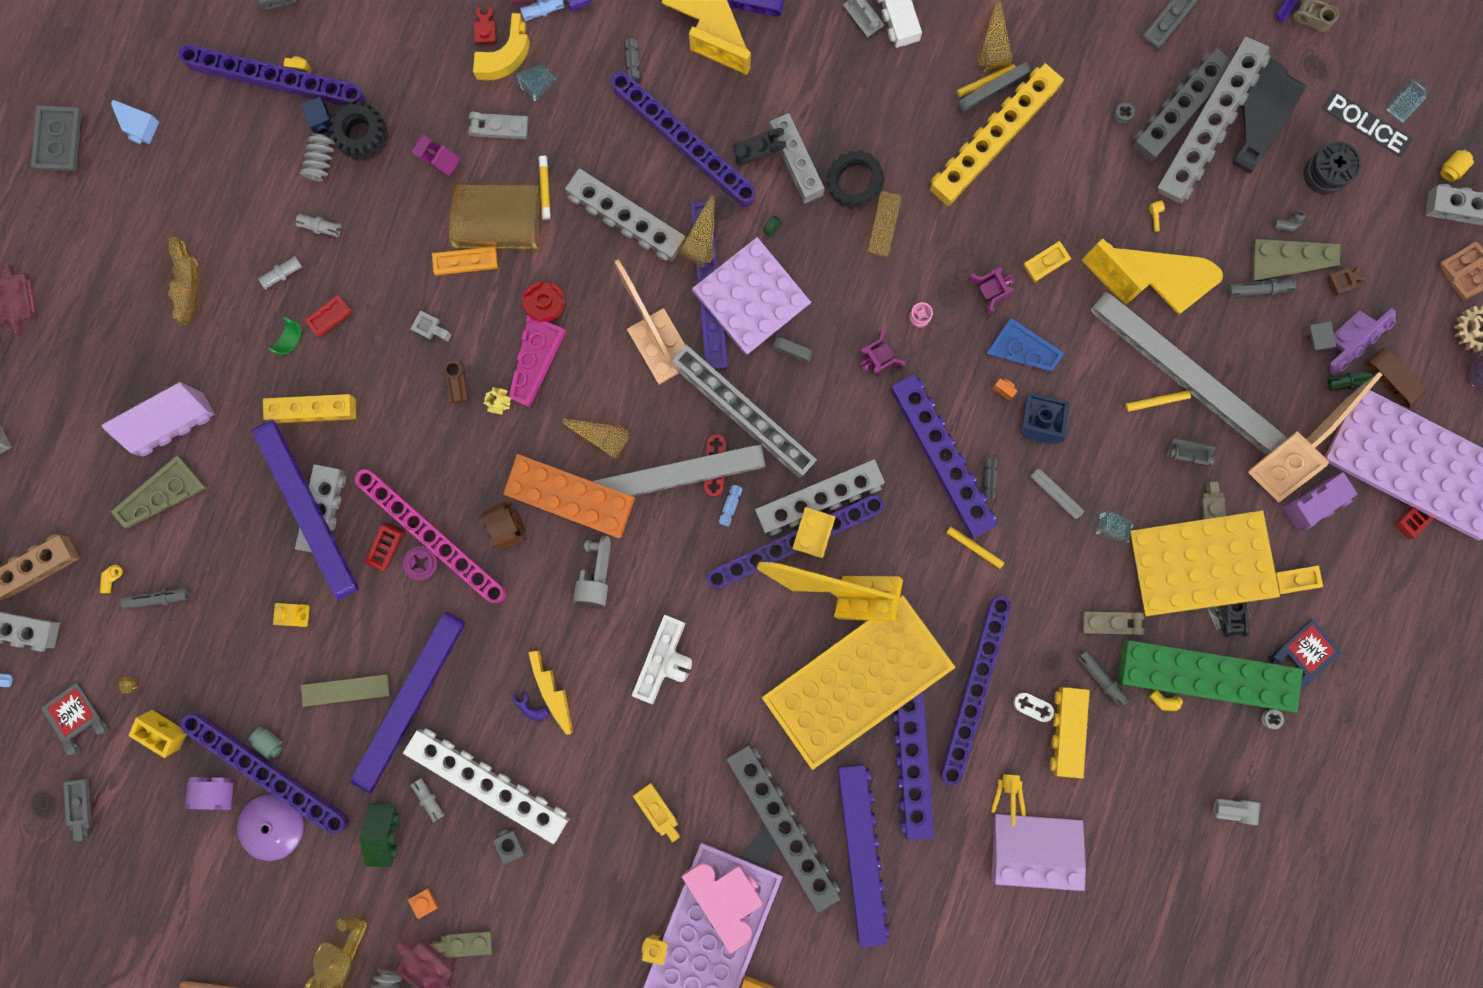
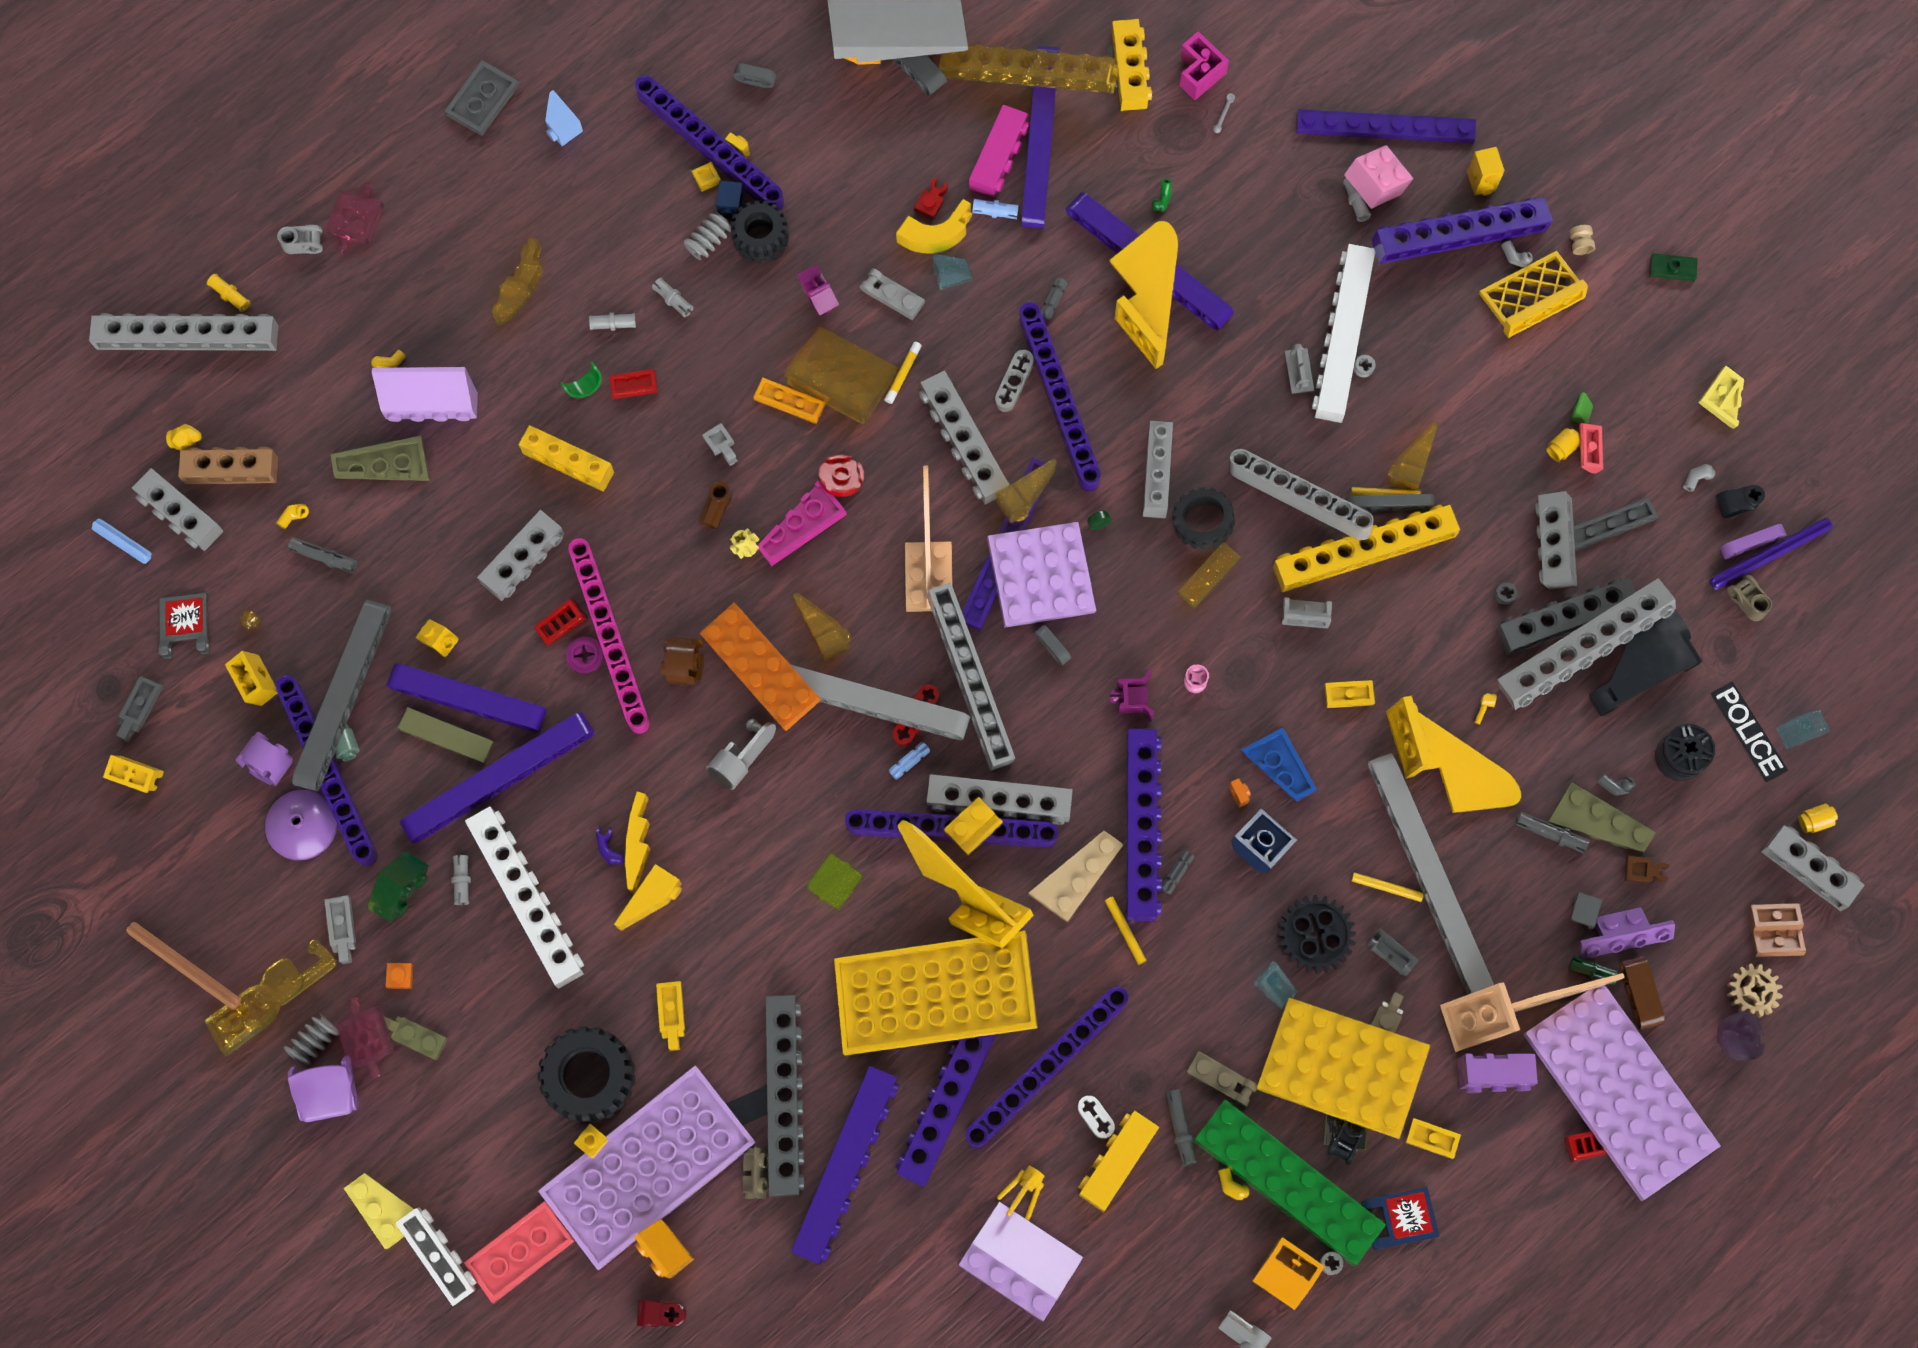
camera: 30 degrees right, 10 degrees down
(106, 864) = (132, 773): none -> yellow hinge
(114, 408) = (387, 362): none -> yellow arm
(241, 708) = (341, 695): none -> dark grey beam
(286, 106) = (706, 176): none -> yellow tile
(305, 509) = (508, 546): dark purple beam -> none
(344, 651) = (466, 698): none -> dark purple beam
(353, 892) = (341, 927): none -> light grey hinge
(505, 854) = (516, 975): dark grey brick -> none
(589, 723) = (652, 895): none -> yellow slope
(620, 930) = (559, 1056): none -> black tyre
(632, 132) = (1013, 397): none -> light grey beam
(662, 661) = (759, 871): white plate -> none
(725, 900) = (686, 1131): bright pink brick -> none
(726, 634) = (834, 881): none -> clear neon green piece
(758, 146) = (1127, 439): black hinge -> none
(801, 908) = (757, 1184): none -> dark tan hinge
(913, 529) = (1072, 882): none -> tan wing
(931, 124) = (1306, 503): none -> light grey beam
(978, 213) = (1306, 613): none -> light grey hinge
(994, 286) = (1283, 690): magenta piece -> none
(1057, 493) = (1236, 922): light grey axle -> none
(1131, 17) = (1564, 574): none -> light grey brick
(1137, 455) = (1337, 929): none -> black gear
(1246, 746) = (1288, 1273): none -> light orange slope

